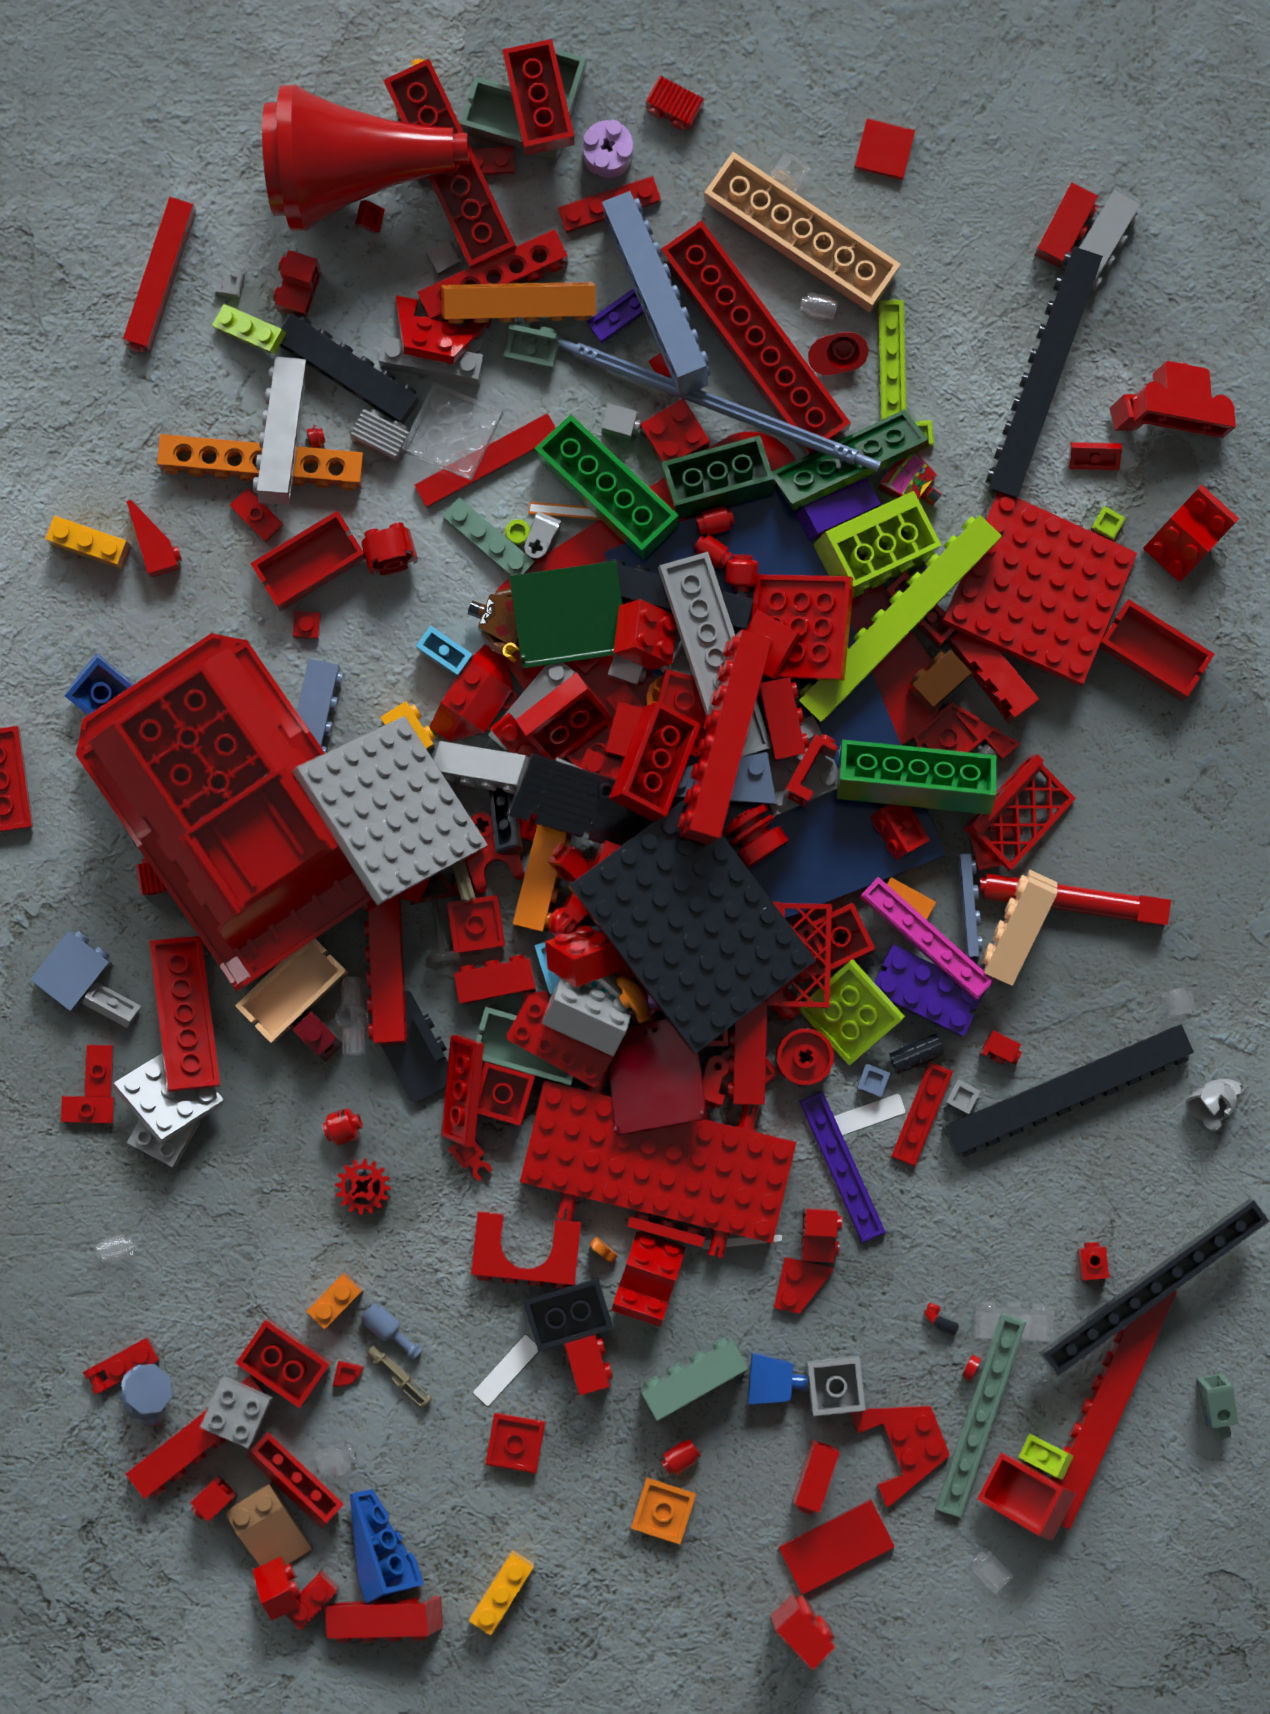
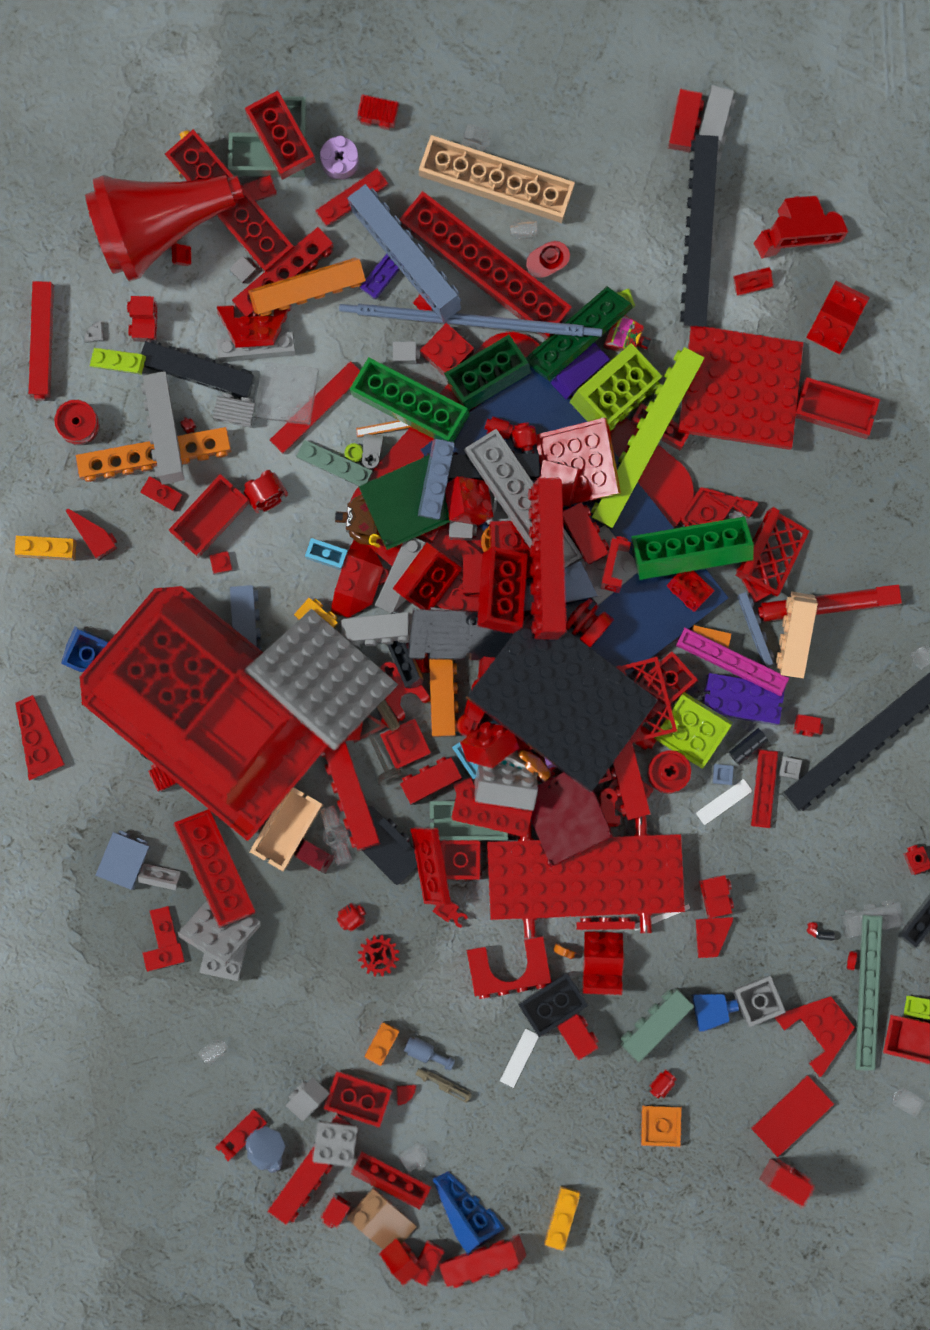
camera: 15 degrees left, 0 degrees up
(164, 381) = (66, 419): none -> red wheel
(217, 1343) = (306, 1098): none -> light grey brick
(513, 737) = (393, 601): red plate -> none
(515, 1442) = (541, 1108): red plate -> none
(532, 345) = (325, 315): sand green bracket -> none
(569, 862) = (460, 680): red brick -> none
(611, 595) = (436, 479): none -> sand blue brick
(714, 520) = (494, 404): red brick -> none
(815, 1477) = (763, 1070): red brick -> none
(842, 1167) = (718, 843): dark purple tile -> none
(884, 149) = (538, 102): red tile -> none
(891, 357) = (586, 251): lime tile -> none
(937, 683) = (688, 475): reddish brown brick -> none
(994, 675) = (726, 459): red wedge -> none
(1108, 523) = (776, 326): lime tile -> none

